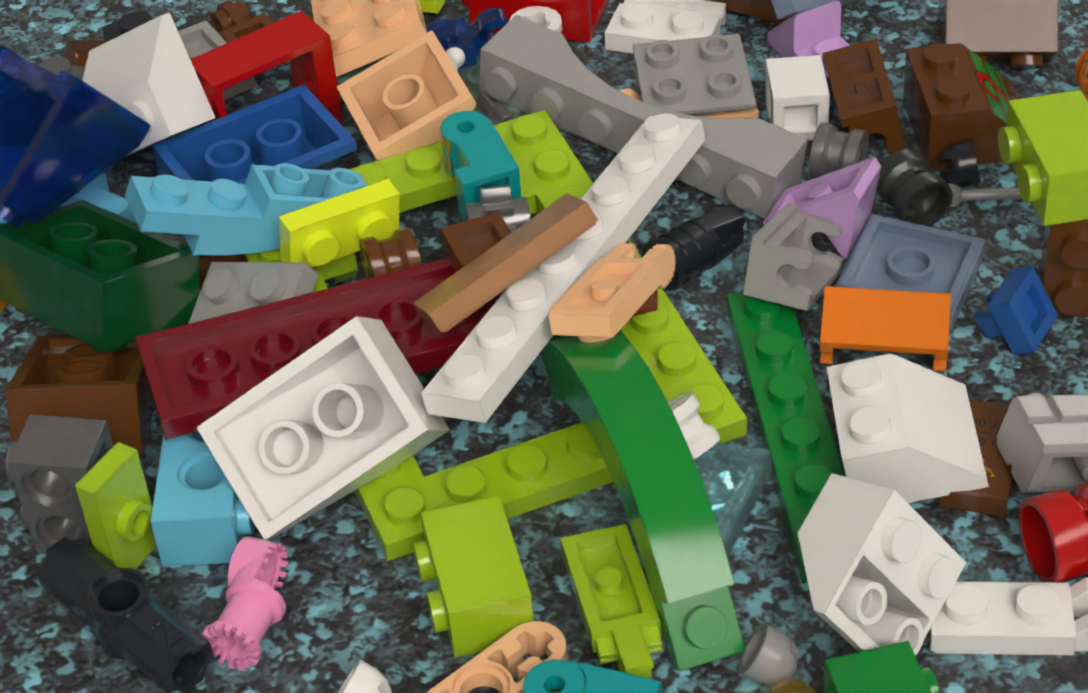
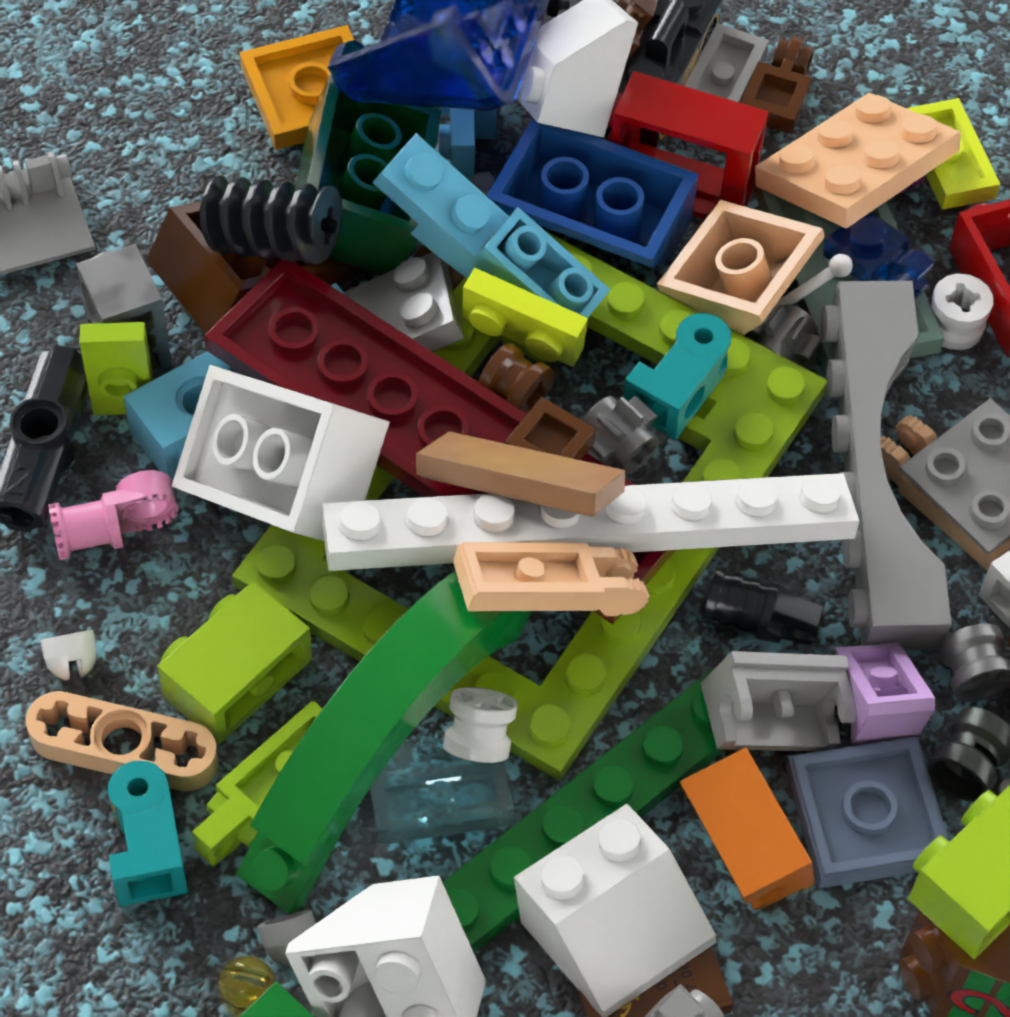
camera: 50 degrees right, 15 degrees up
(106, 311) = (271, 219): none -> black piece
(1018, 311) = (862, 938): blue tile -> none

